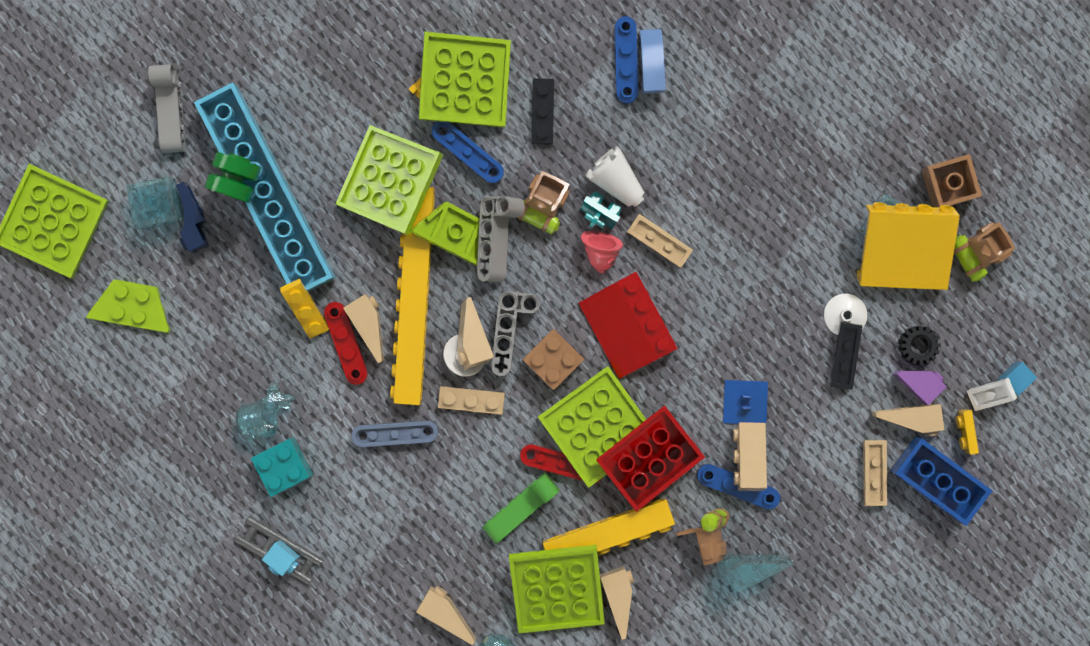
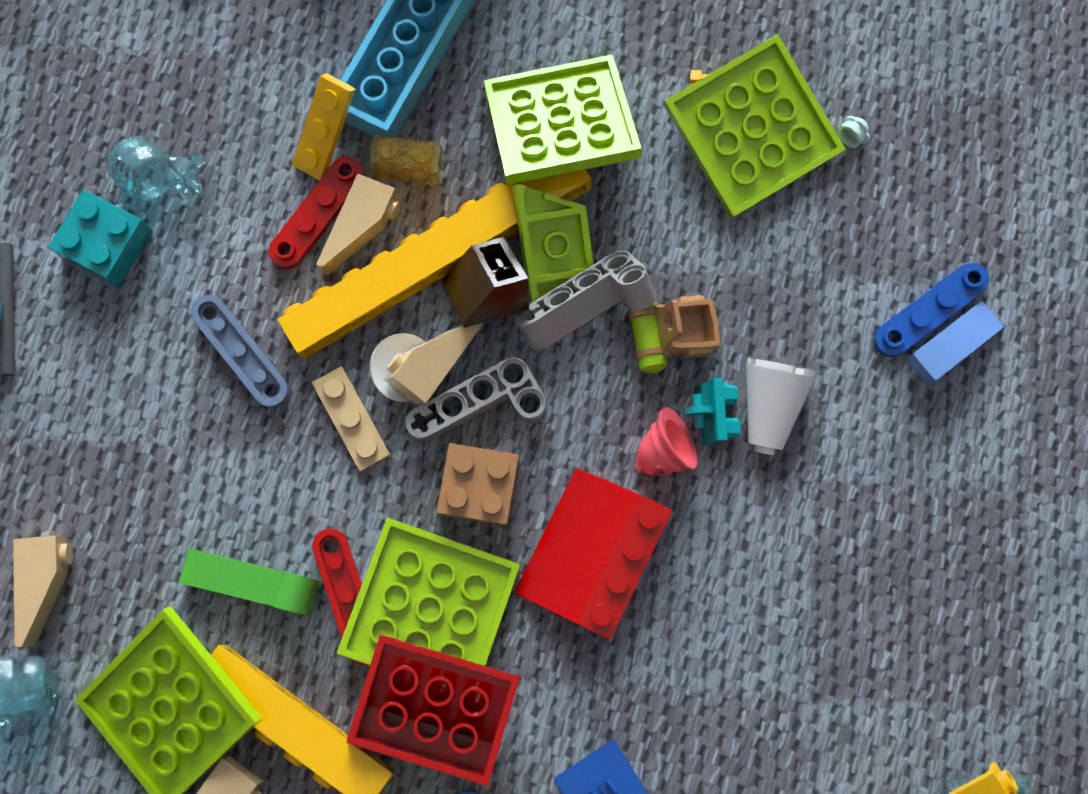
camera: 60 degrees right, 10 degrees down
(352, 276) = (406, 160): none -> clear yellow brick
(452, 282) = (487, 283): none -> dark brown slope
(468, 152) = (667, 195): blue plate -> none
(503, 28) = (853, 132): none -> light aqua plate
(542, 111) = (787, 251): black plate -> none
(660, 241) = (734, 516): tan plate -> none

